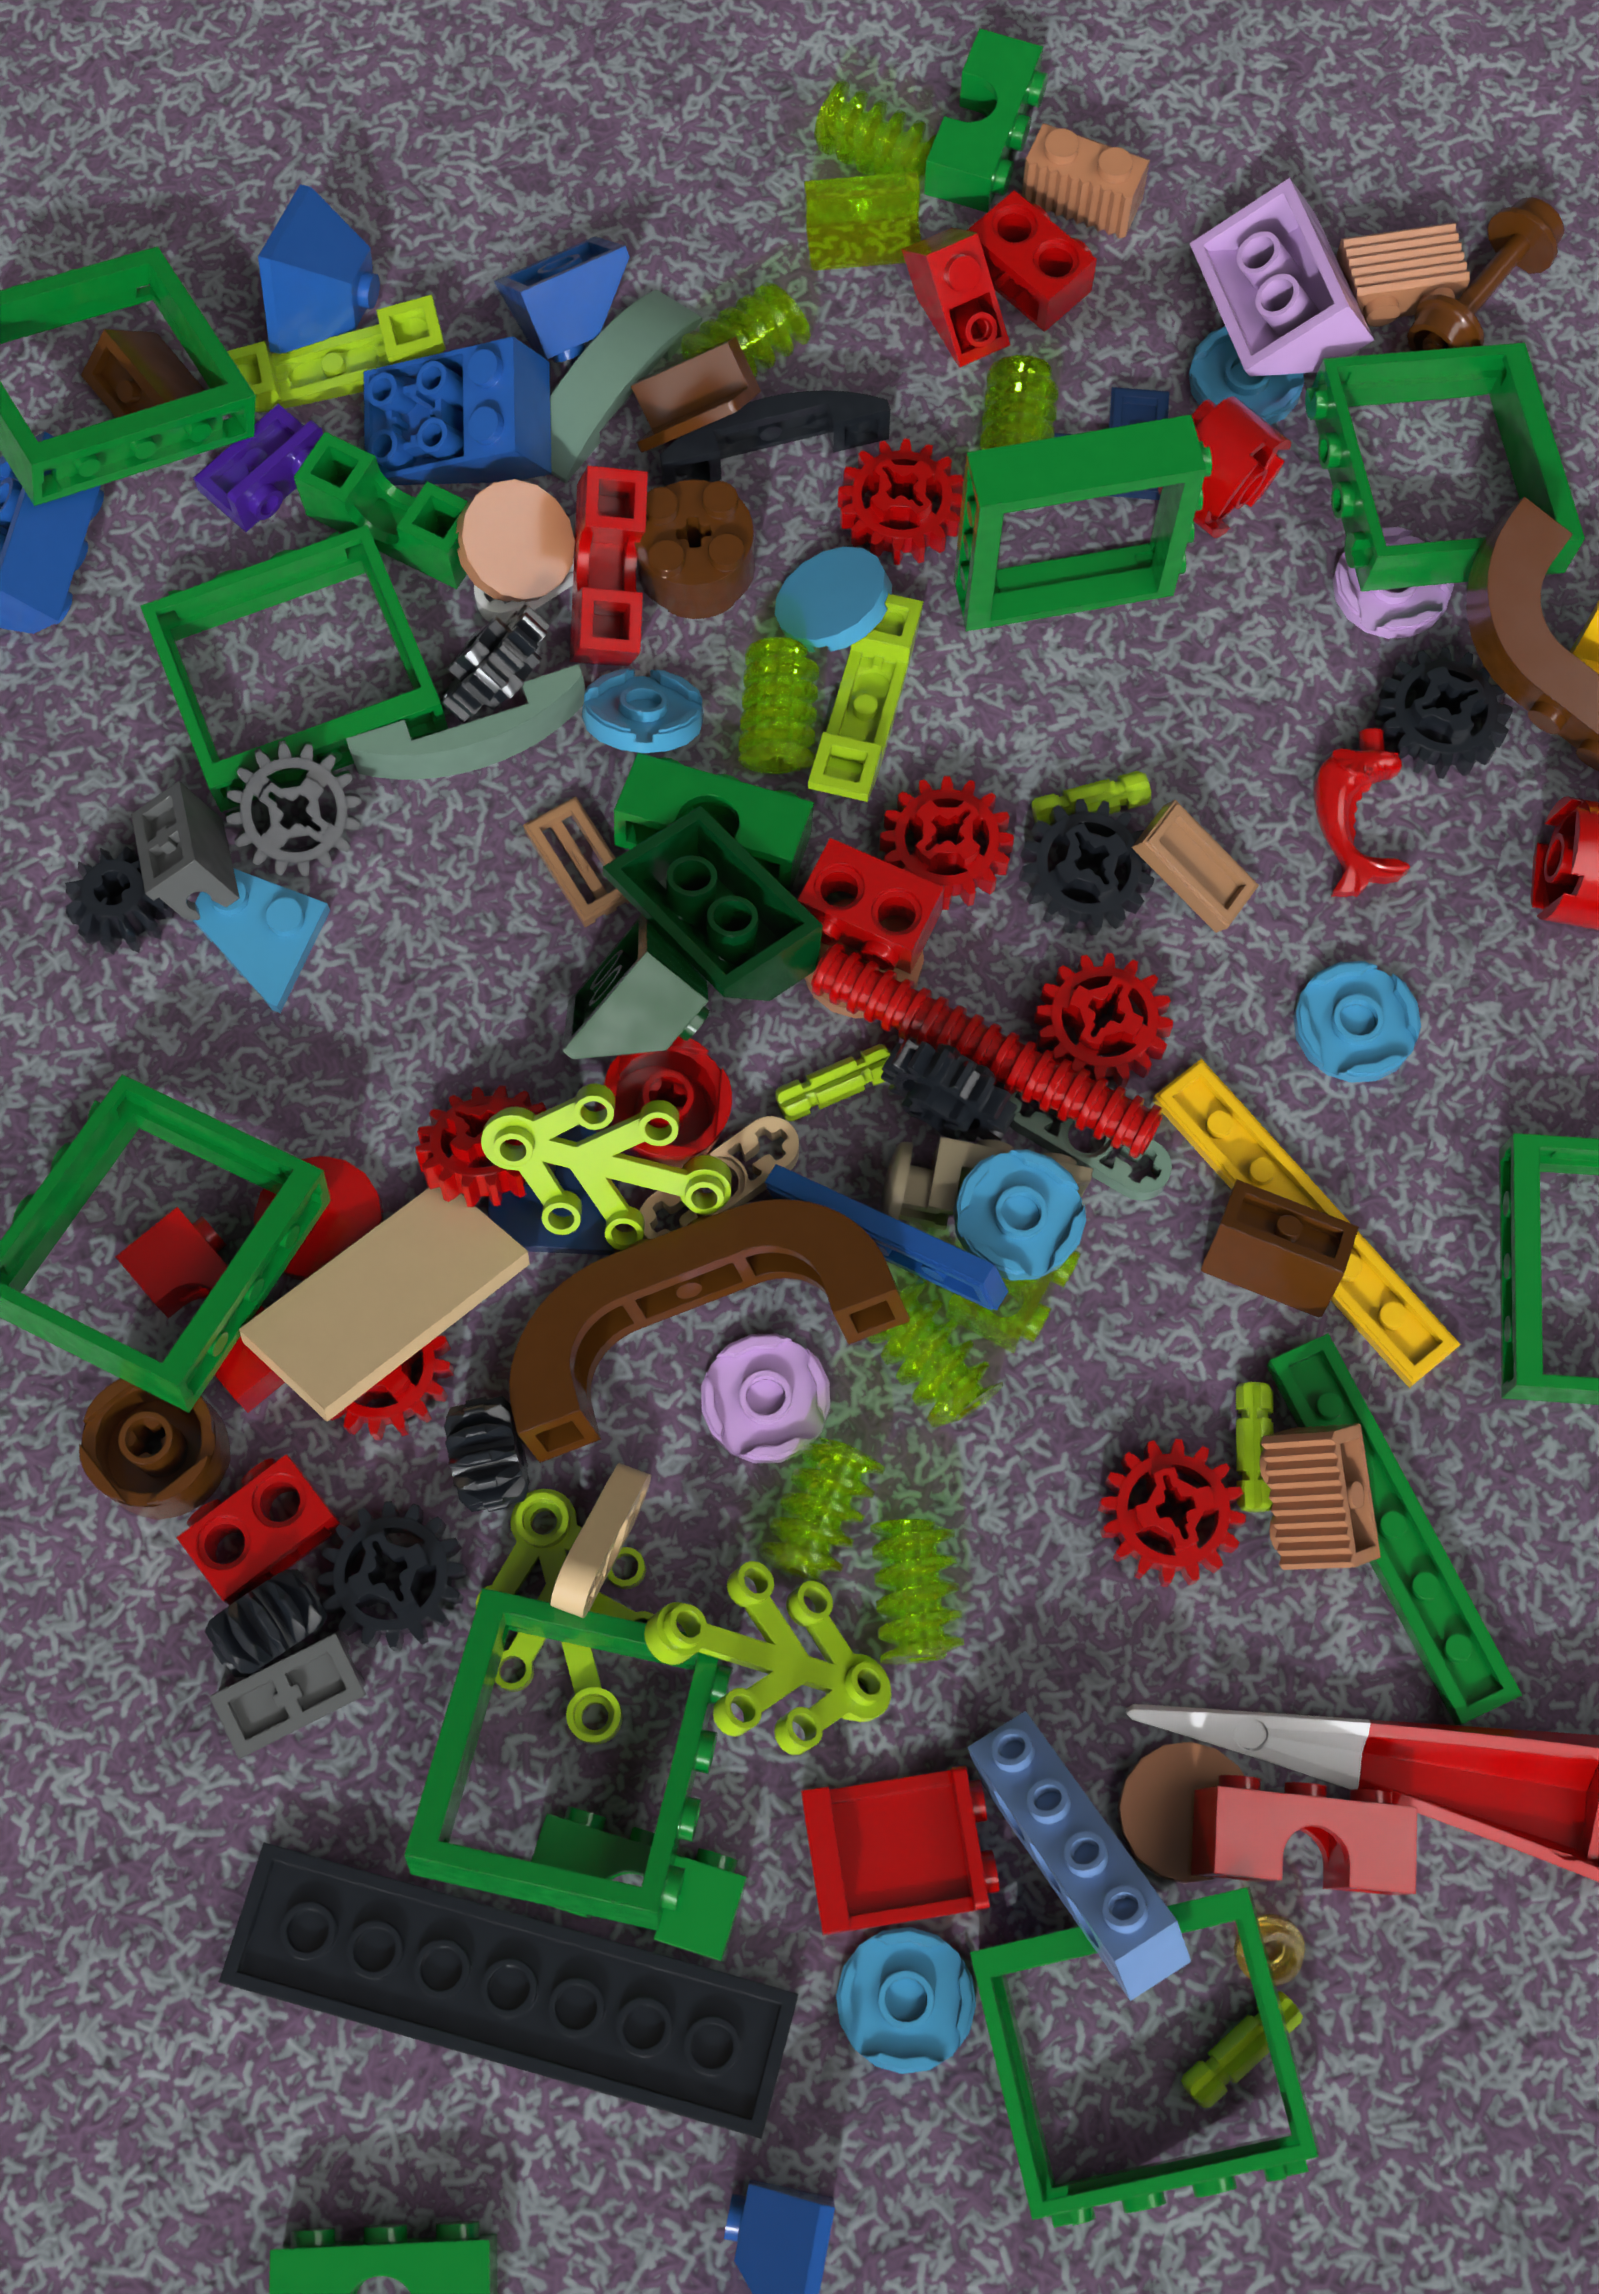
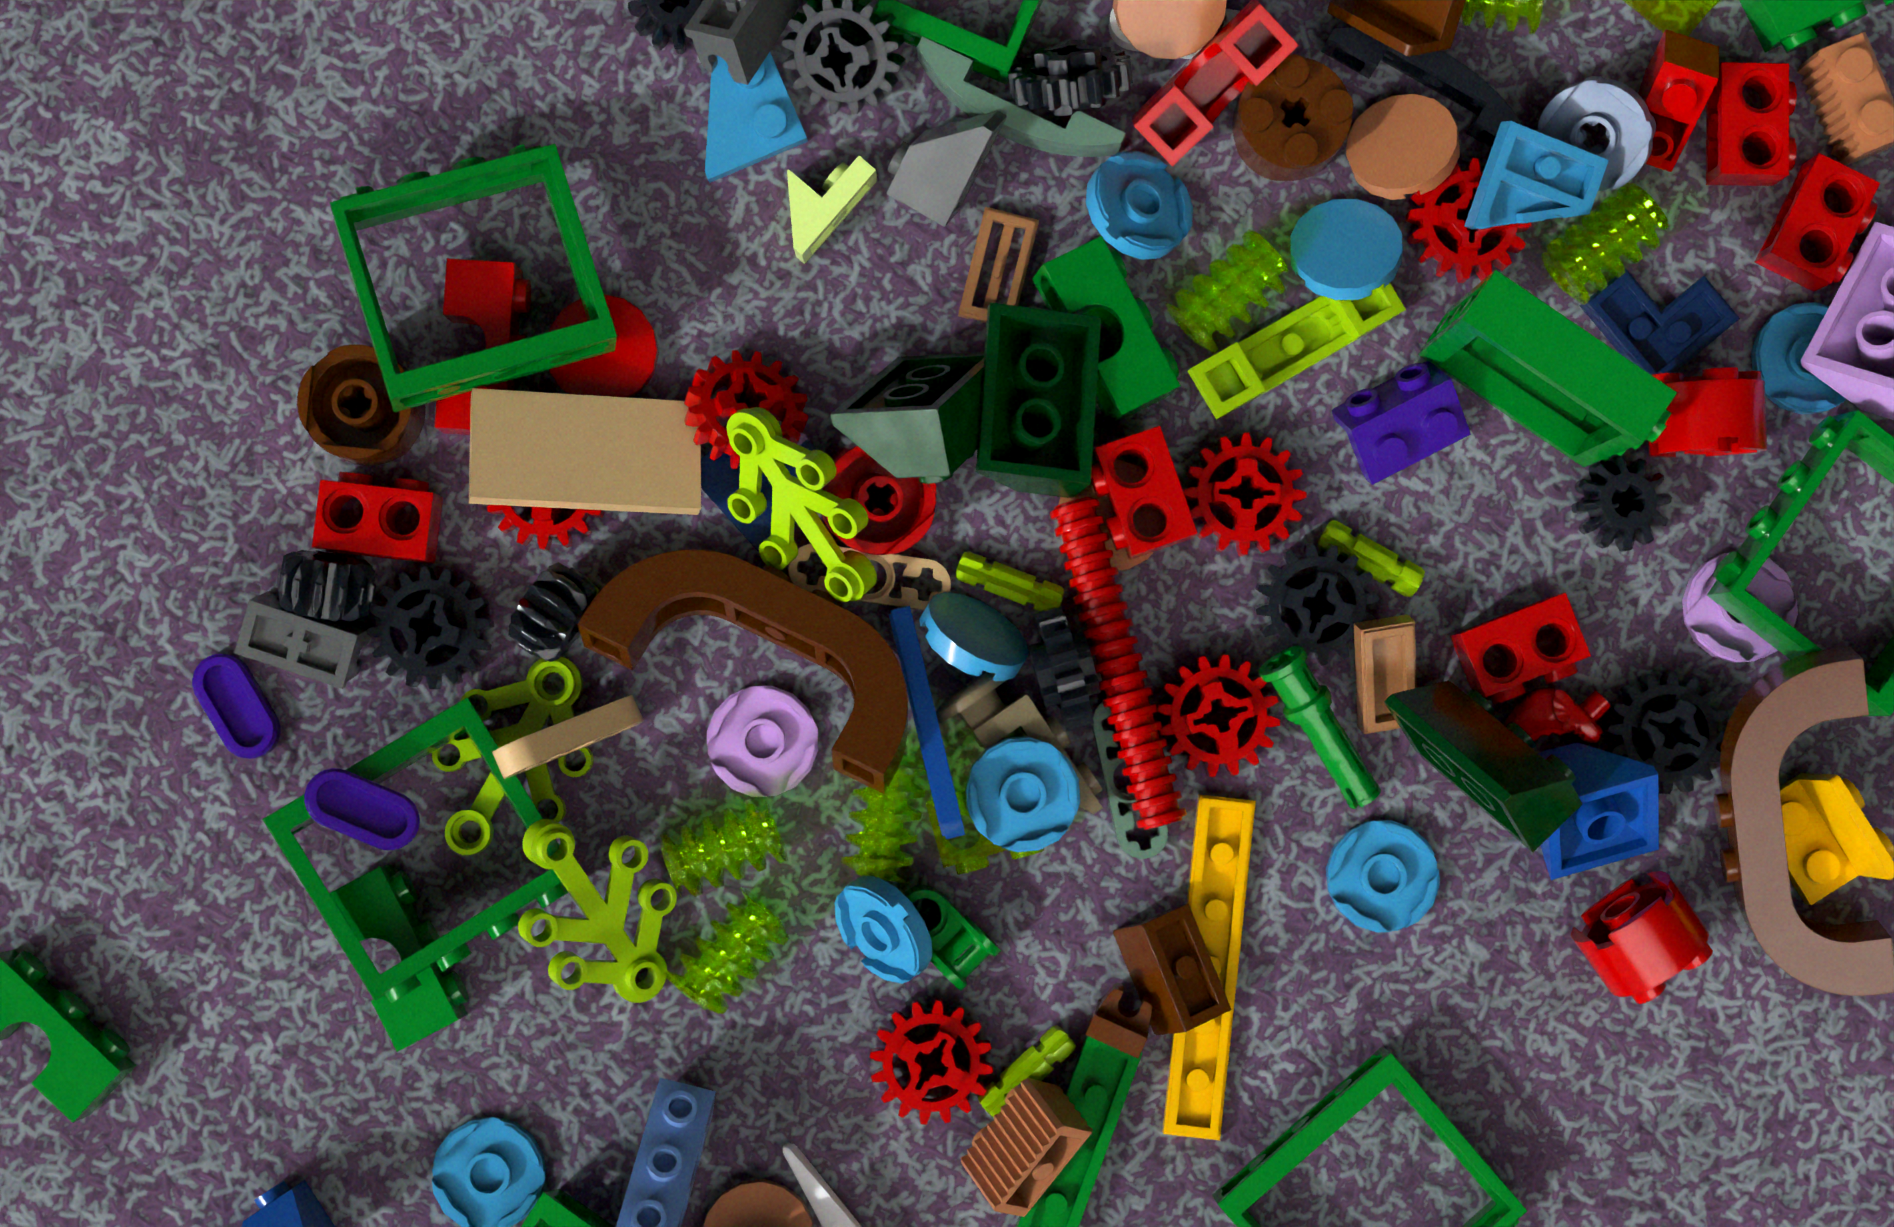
camera: 40 degrees right, 15 degrees up
(283, 1814) = (236, 706): none -> dark purple tile
(392, 946) = (817, 216): none -> yellowish green slope
(458, 817) = (942, 165): none -> slope
(484, 1760) = (361, 809): none -> dark purple tile
(511, 1989) = (269, 941): black plate -> none
(799, 492) = (1403, 146): none -> nougat tile
(851, 1138) = (973, 636): none -> dark azure tile
(898, 1850) = (566, 1087): red panel -> none
(919, 418) = (1534, 179): none -> dark azure wing
(952, 332) = (1619, 110): none -> sand blue plate
(1006, 681) = (1402, 420): none -> dark purple bracket
(1022, 1437) = (884, 929): none -> dark azure tile
(1086, 1397) = (952, 936): none -> green piece
(1150, 265) = (1809, 218): none -> red brick
(1165, 941) = (1310, 707): none -> green pin
(1222, 605) = (1642, 495): none -> black gear
(1266, 753) = (1516, 637): none -> red brick
(1293, 1328) = (1120, 1027): none -> reddish brown tile
(1342, 844) = (1487, 759): none -> dark green slope
(1450, 815) = (1615, 815): none -> blue slope

